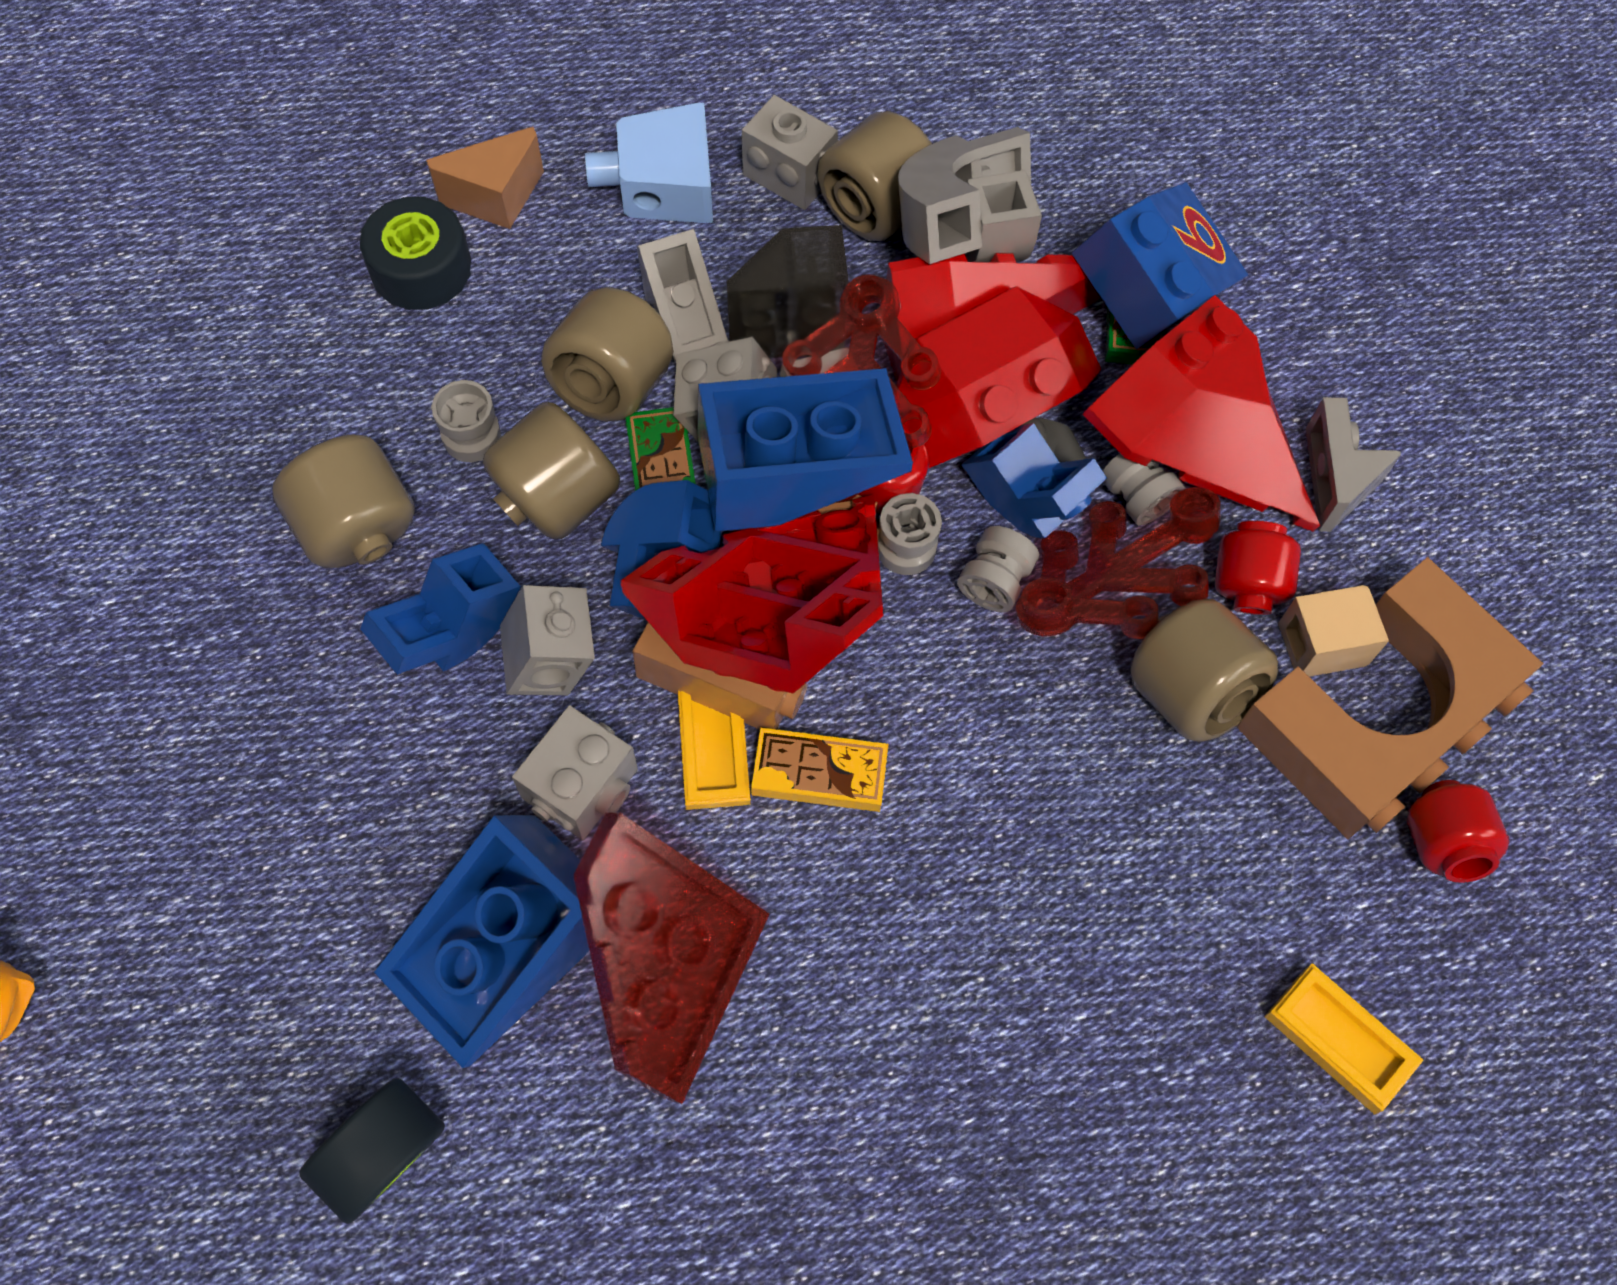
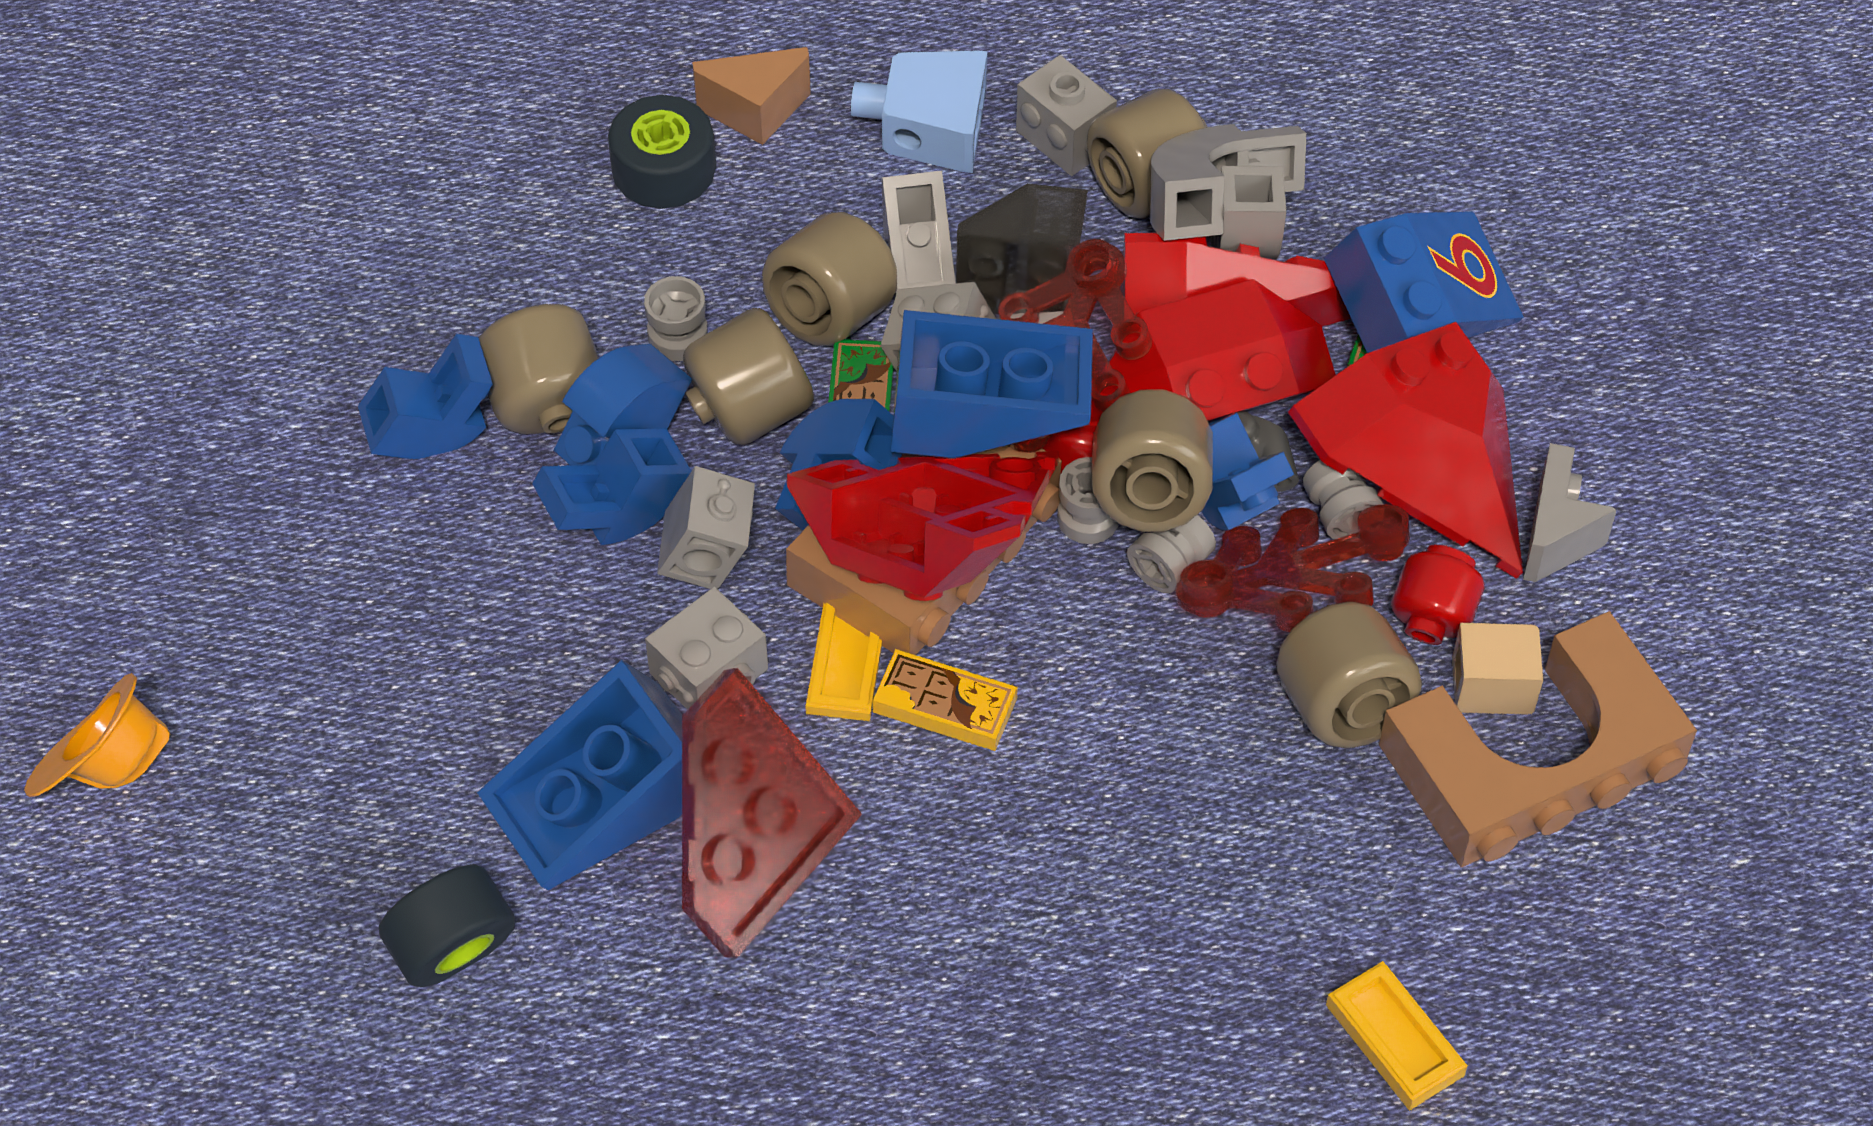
camera: 15 degrees right, 10 degrees down
(236, 566) = (428, 412): none -> blue brick
(429, 518) = (619, 391): none -> blue brick
(973, 491) = (1152, 460): none -> dark tan head
(1457, 831) = (1565, 870): red head -> none

